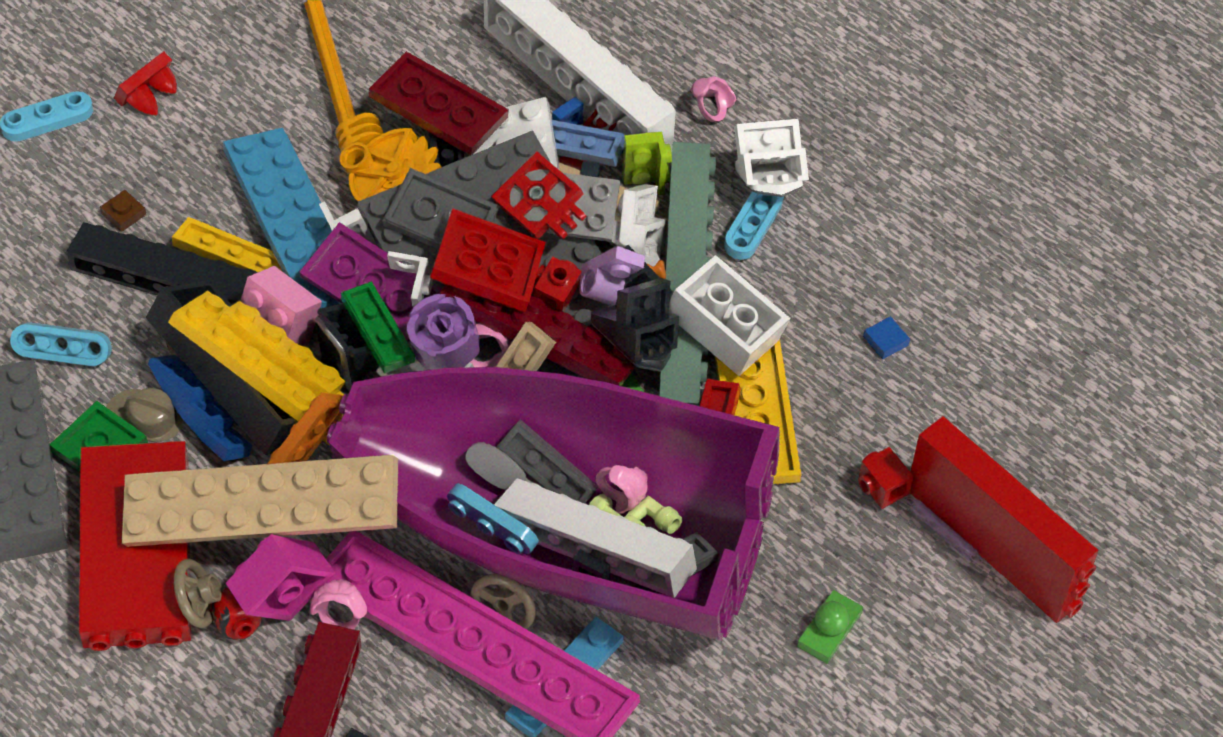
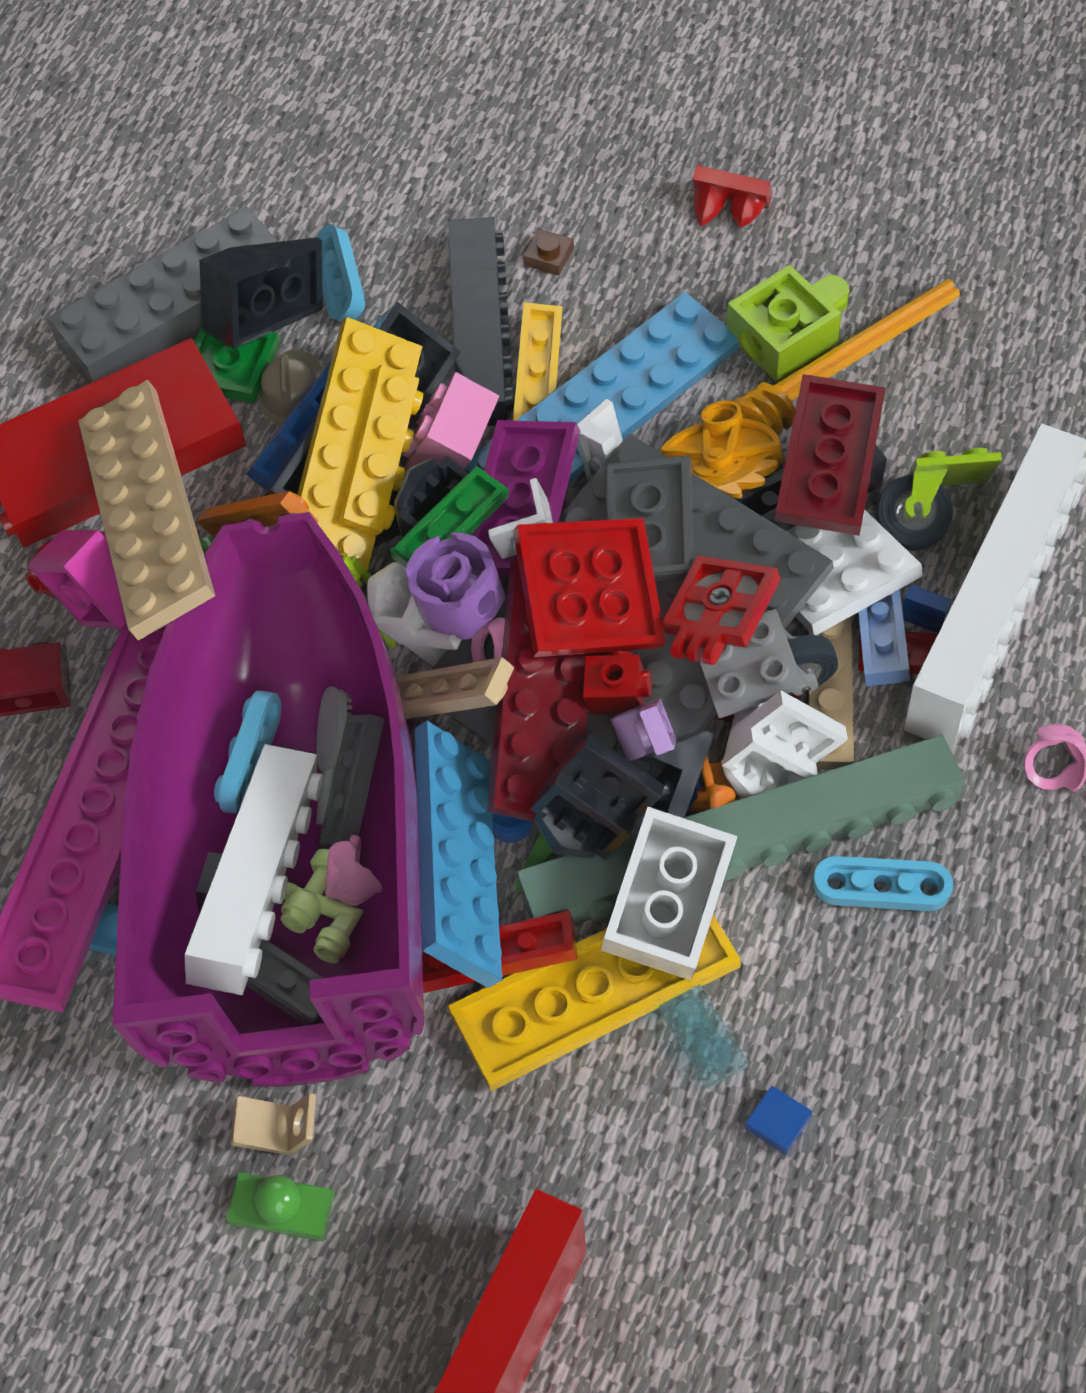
camera: 75 degrees right, 5 degrees up
(35, 120) = (640, 135): medium azure plate -> none
(63, 391) = (260, 288): none -> black slope
(200, 591) = (50, 529): dark tan piece -> none
(292, 92) = (788, 320): none -> lime brick
(343, 593) = (99, 650): bright pink piece -> none
(482, 75) = (918, 506): none -> plate
(646, 160) = (893, 712): lime bracket -> none
(771, 157) = (972, 856): white piece -> none
(773, 610) = (272, 1125): none -> tan bracket
(814, 354) = (703, 1037): none -> clear light blue plate
(885, 477) = (517, 1181): red brick -> none

